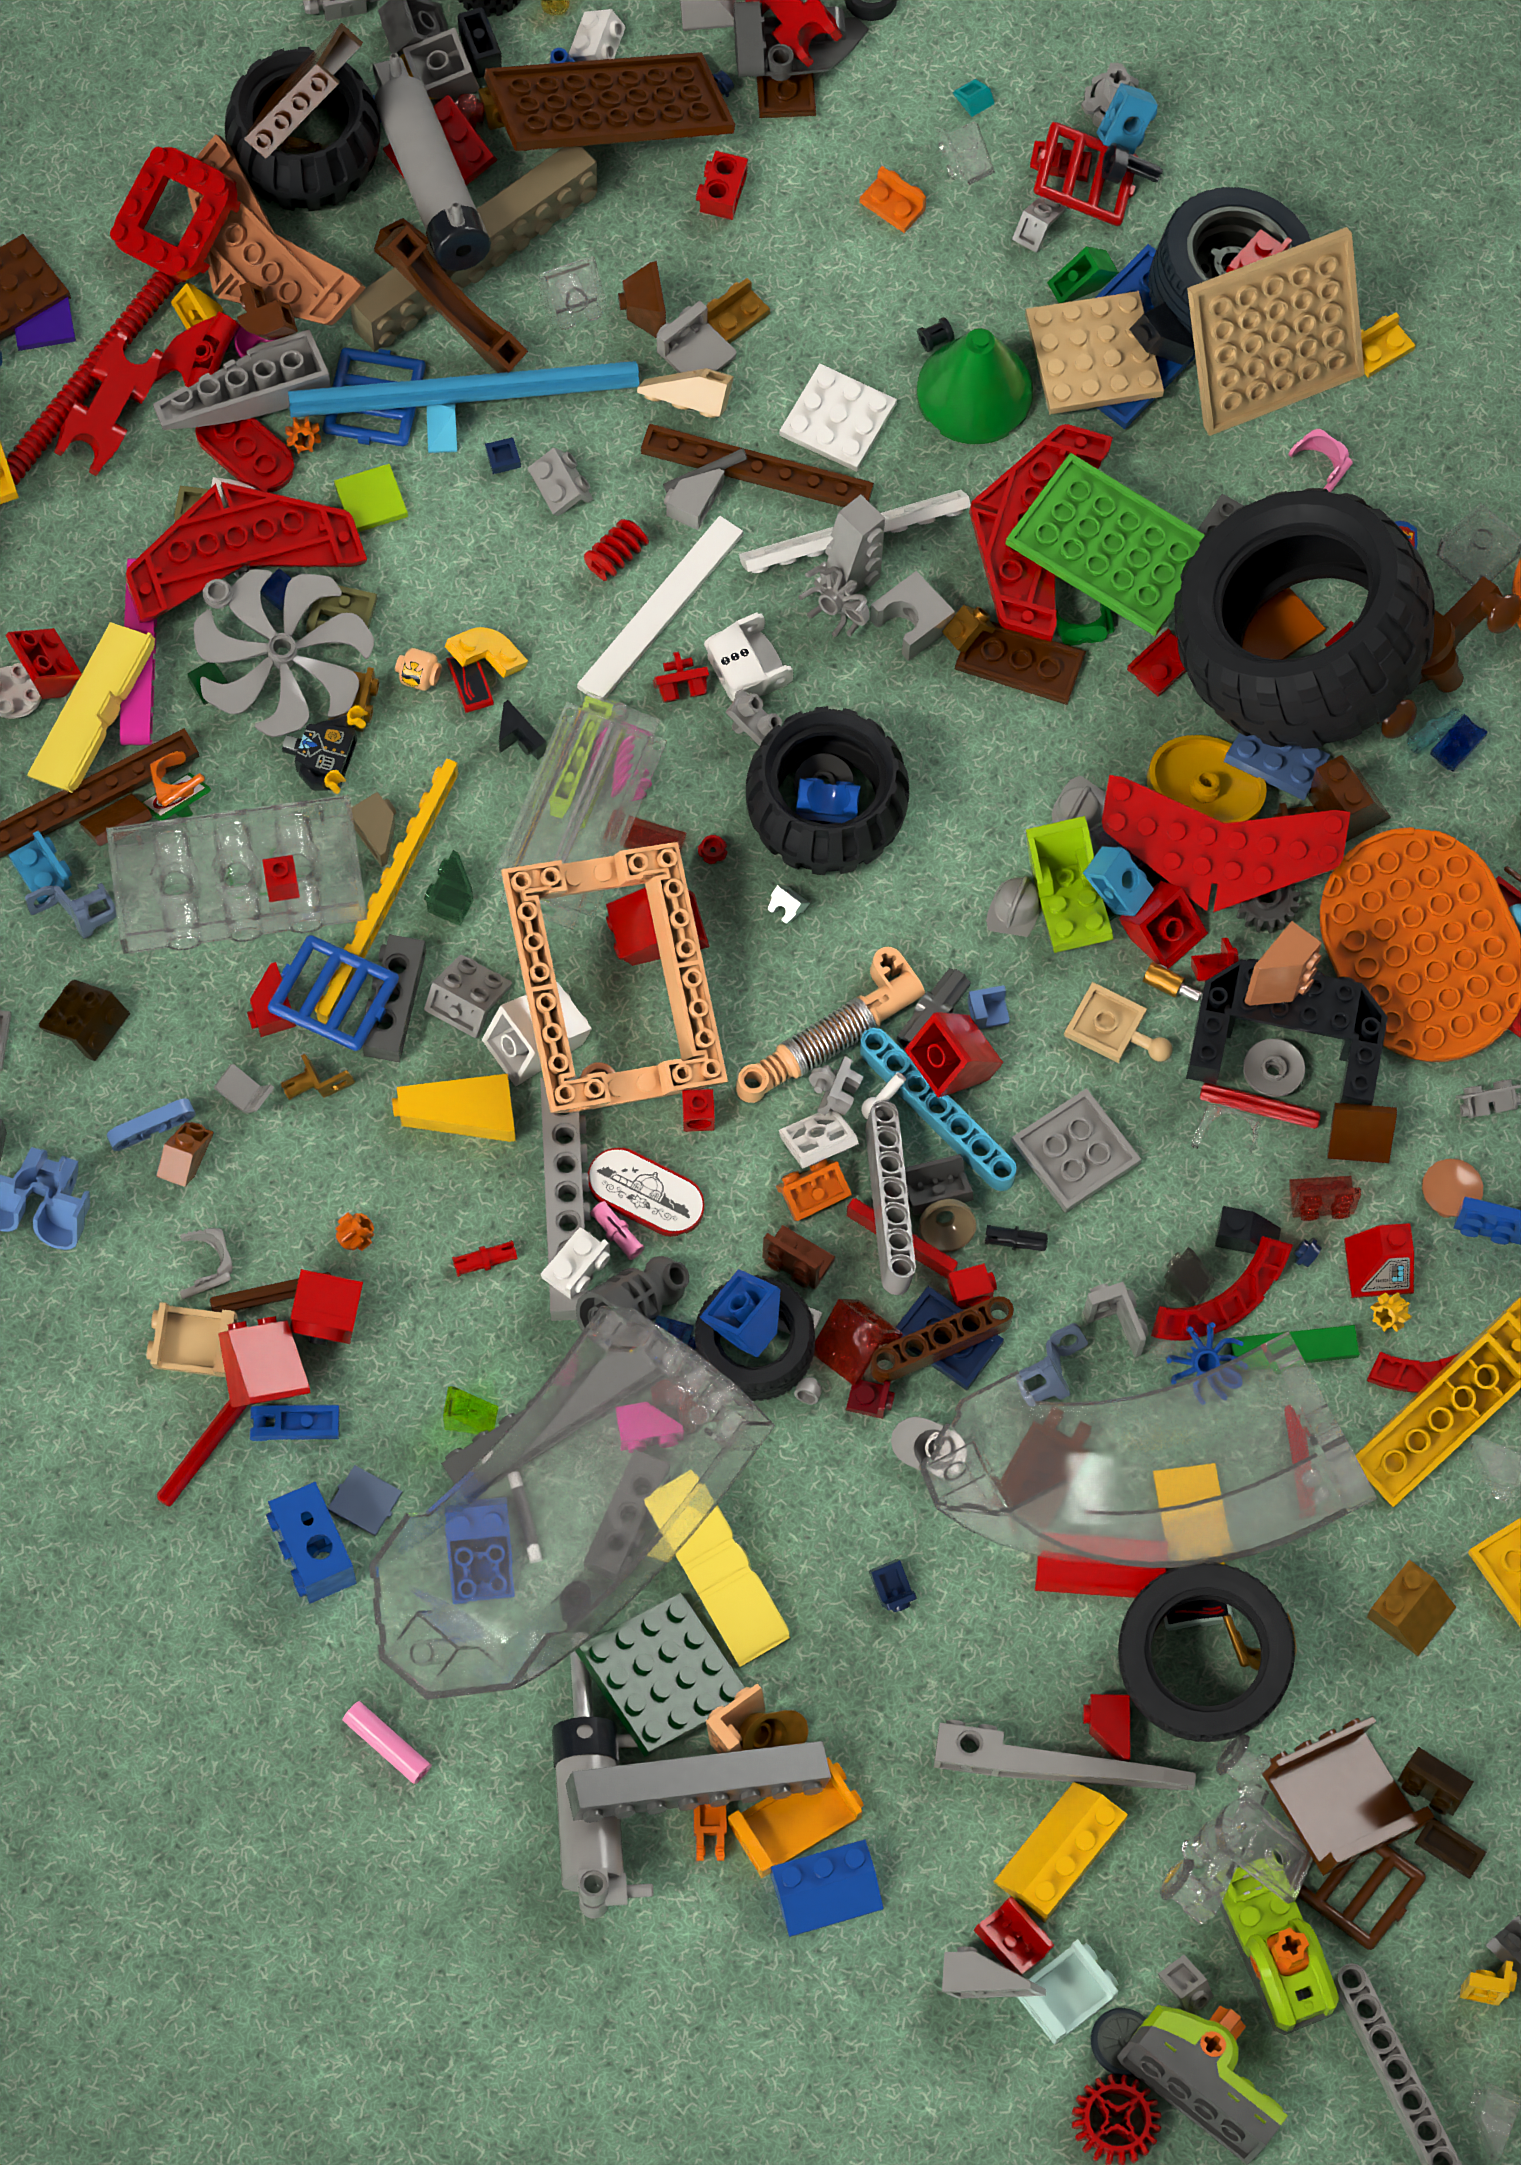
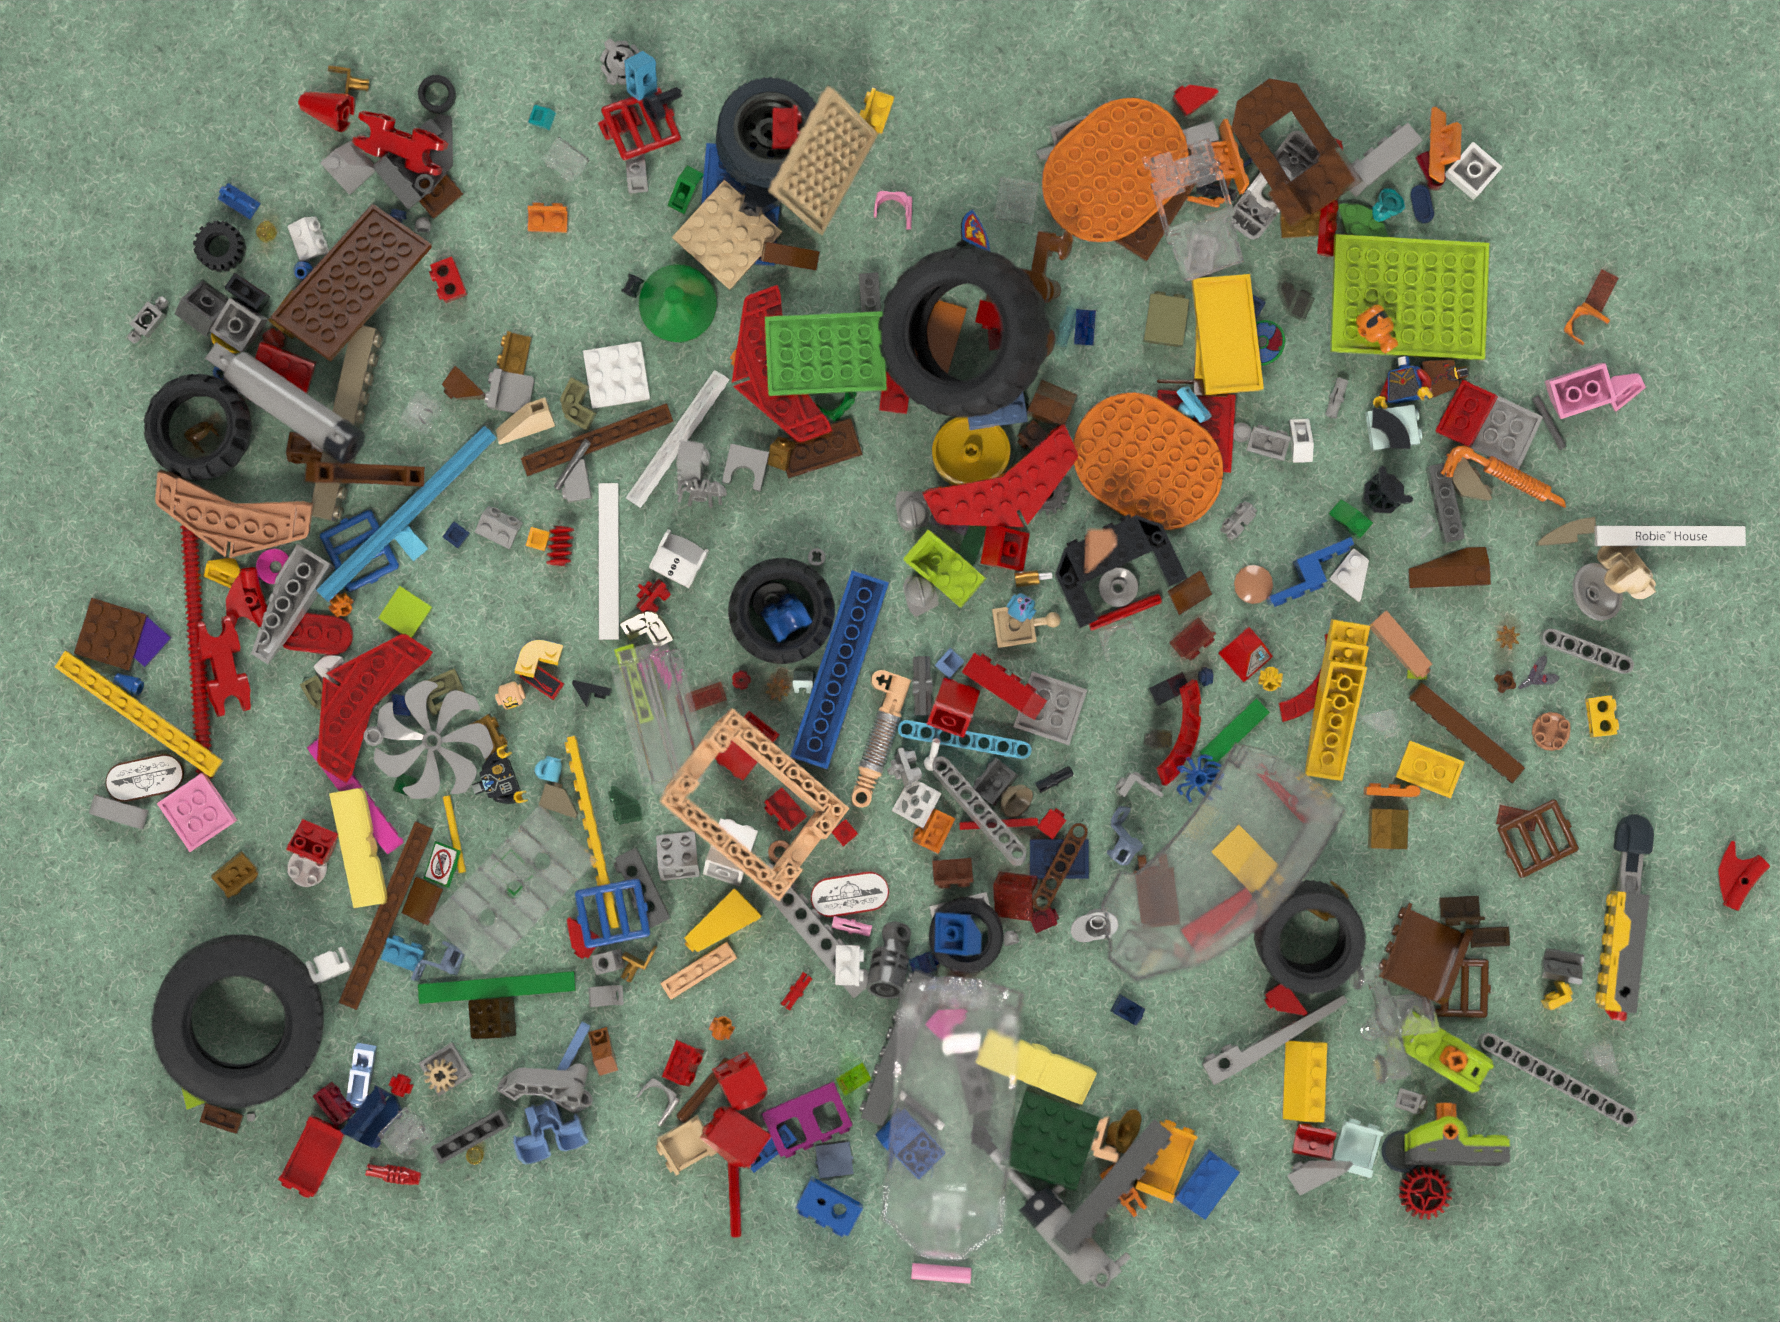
camera: 35 degrees left, 20 degrees up
(96, 1144) = (560, 1086): none -> light grey connector
(135, 997) = (496, 987): none -> green tile
(166, 792) = (440, 870): orange helmet -> none
(218, 199) = (194, 524): red plate -> none
(223, 771) = (454, 832): none -> yellow bar
(265, 319) = (268, 560): reddish brown brick -> none
(272, 1241) = (683, 1063): none -> red bracket
(280, 1051) = (614, 959): none -> light grey brick
(281, 878) = (544, 883): red brick -> none
(302, 91) = (186, 424): panel -> none
(375, 1400) = (802, 1109): none -> magenta window
(383, 1147) = (698, 970): none -> light nougat tile
(395, 784) = (549, 769): none -> medium azure piece
(594, 526) = (537, 539): none -> light orange tile
(645, 1035) = (784, 809): none -> red bracket
(650, 701) = (647, 622): none -> plate
(742, 884) = (782, 692): none -> clear orange gear
(743, 110) = (422, 222): none -> light grey hinge
(750, 717) = (708, 592): light grey hips -> none
(760, 409) = (571, 404): none -> olive plate
(844, 917) = (839, 669): none -> blue brick
(927, 780) = (810, 556): none -> light grey bush
(1040, 1077) = (1004, 686): none -> red wedge
(1118, 880) = (968, 546): dark azure brick -> none
(1131, 998) = (1021, 607): none -> dark azure head
(1153, 422) = (790, 255): none -> reddish brown slope
(1211, 964) = (1048, 551): red bracket -> none
(1451, 1564) = (1393, 790): none -> orange hinge

